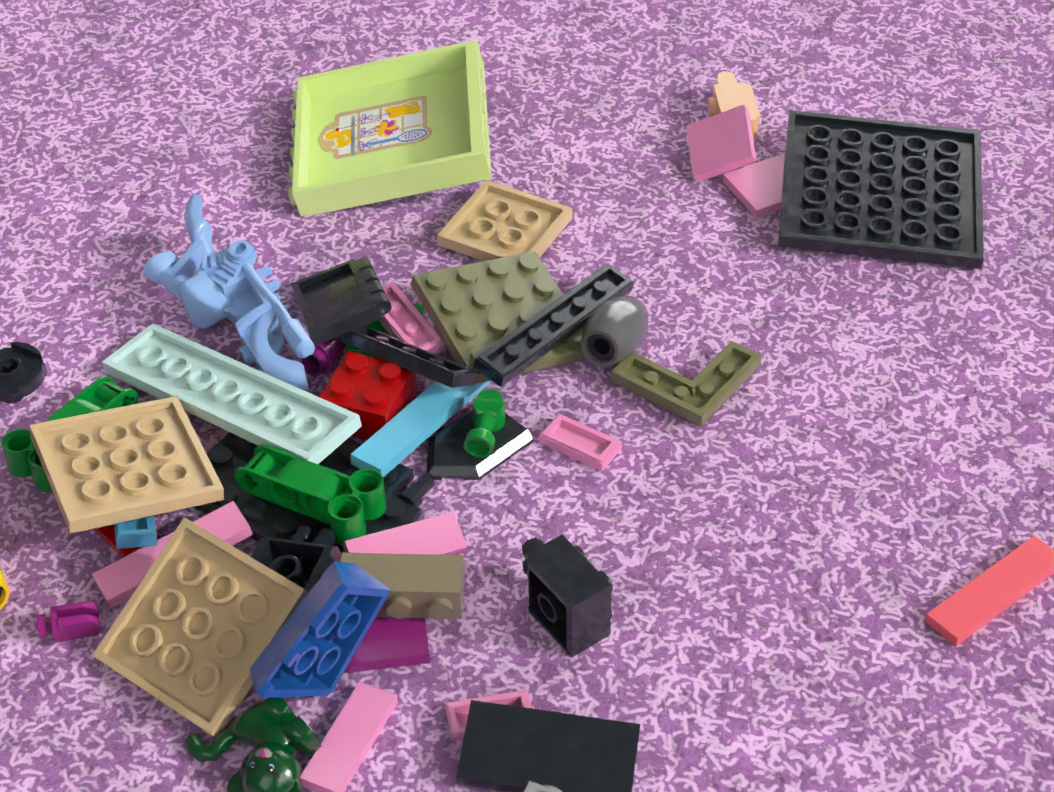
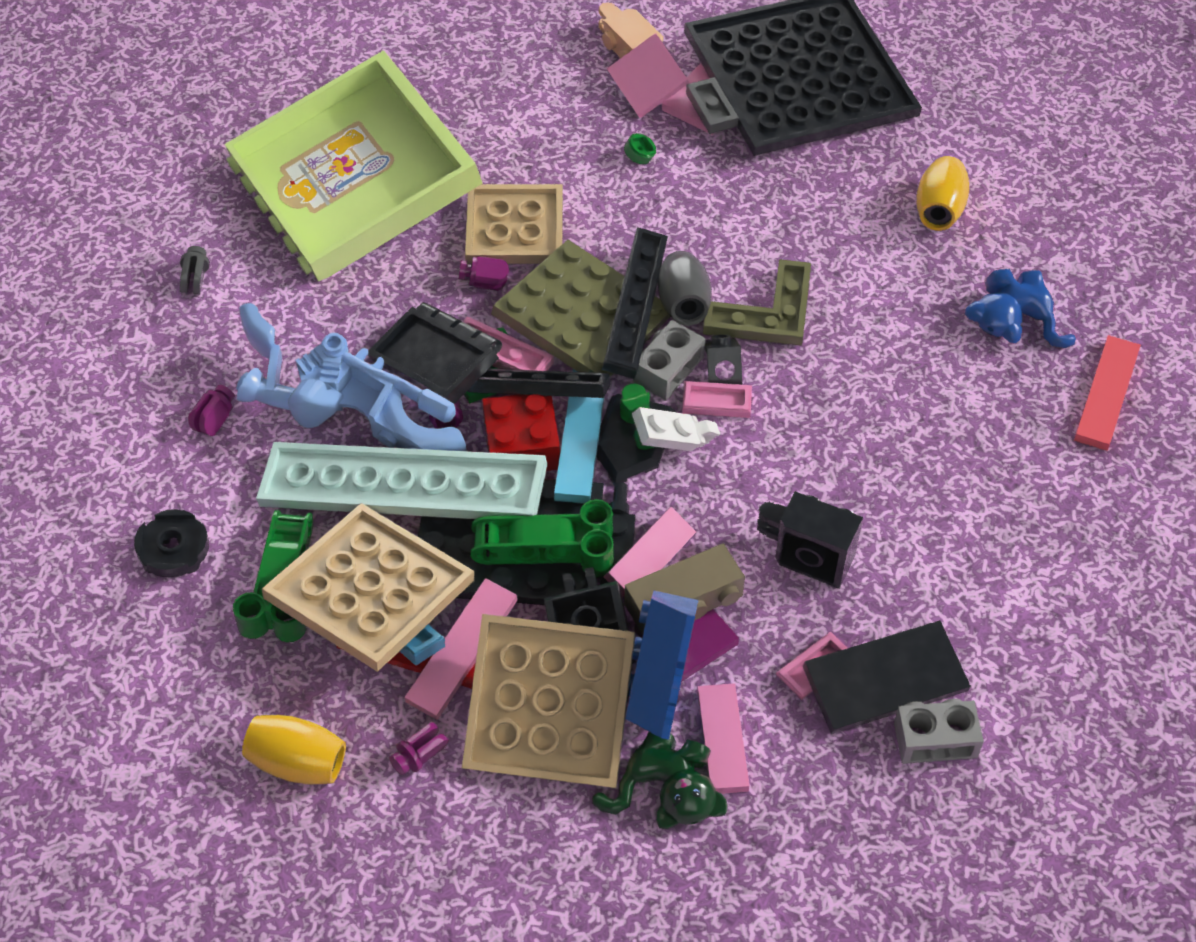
camera: 30 degrees left, 10 degrees up
(122, 281) = (211, 410): none -> magenta arm
(198, 168) = (193, 262): none -> dark grey arm
(442, 253) = (485, 273): none -> magenta arm
(503, 444) = (673, 429): none -> white hinge
(556, 388) = (669, 359): none -> light grey brick
(616, 399) = (720, 349): none -> black bracket
(672, 204) = (640, 148): none -> green tile
(765, 188) = (712, 105): none -> dark grey plate
(927, 470) = (1008, 298): none -> blue animal
(944, 340) = (942, 193): none -> yellow piece

